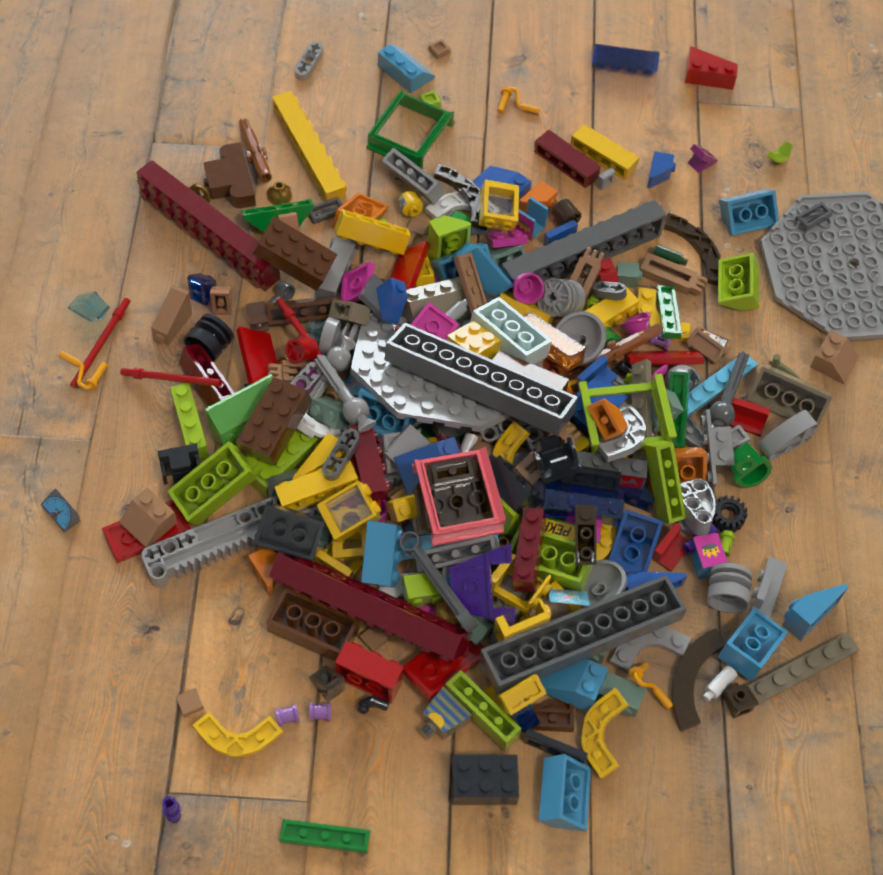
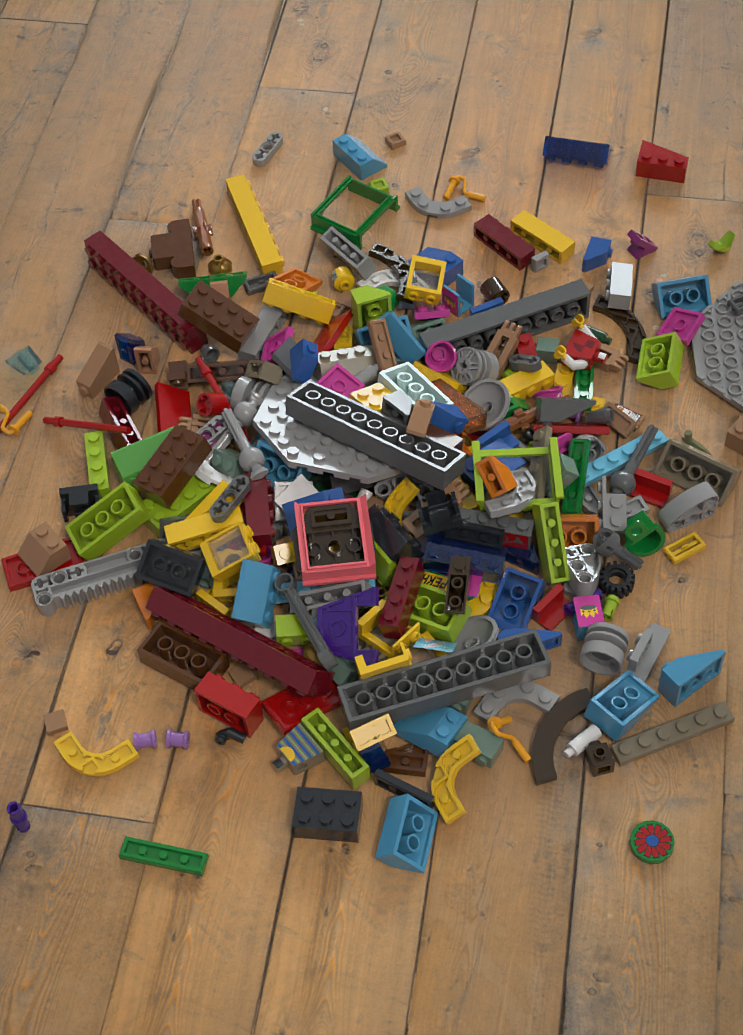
camera: 15 degrees right, 5 degrees down
(328, 682) = (191, 714): clear smoke slope -> none
(498, 125) = (442, 210): none -> light grey plate
(500, 349) = (397, 406): none -> slope
(527, 361) = (420, 417): none -> medium nougat slope
(542, 193) = (473, 272): orange slope -> none
(548, 356) = (448, 418): none -> blue slope
(650, 340) = (557, 409): none -> dark grey slope
(663, 272) = (581, 349): none -> torso
(688, 203) = (619, 285): none -> brick
(690, 344) = (601, 416): none -> dark grey cone
(723, 481) = (612, 546): none -> dark grey piece
(755, 241) = (682, 322): none -> dark pink plate
(776, 485) = (687, 550): none -> yellow tile
(799, 781) = (652, 842): none -> tile

